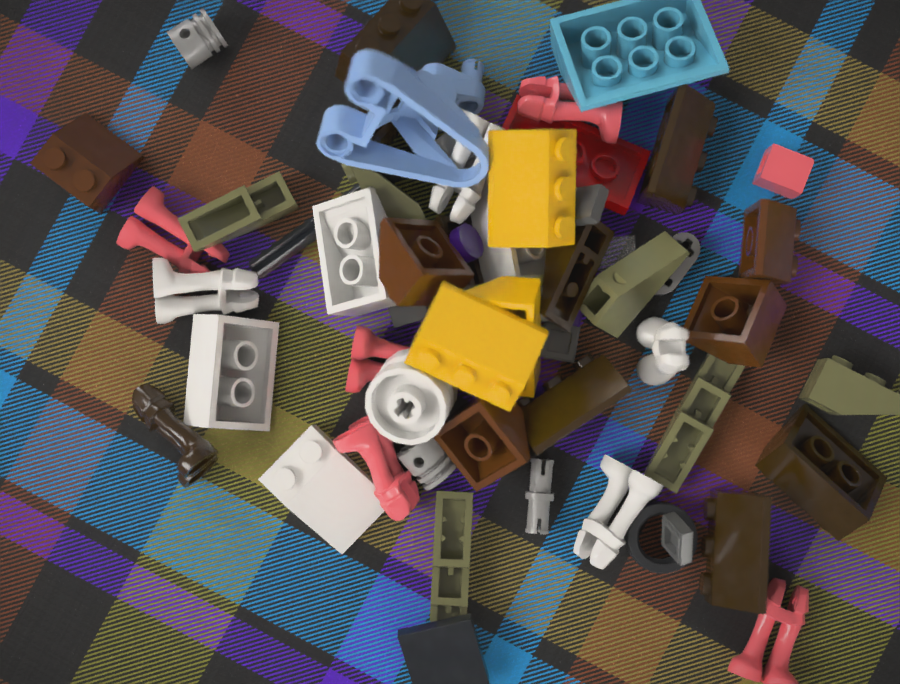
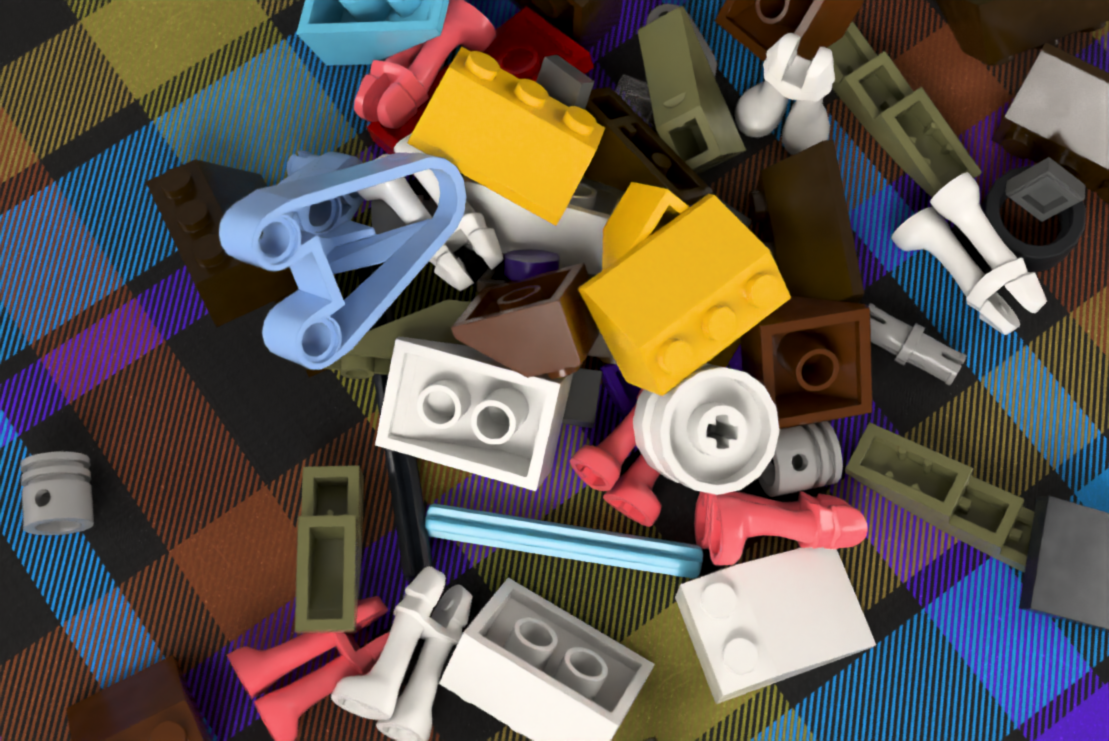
camera: 70 degrees left, 15 degrees down
(314, 344) = (564, 541): none -> medium azure axle

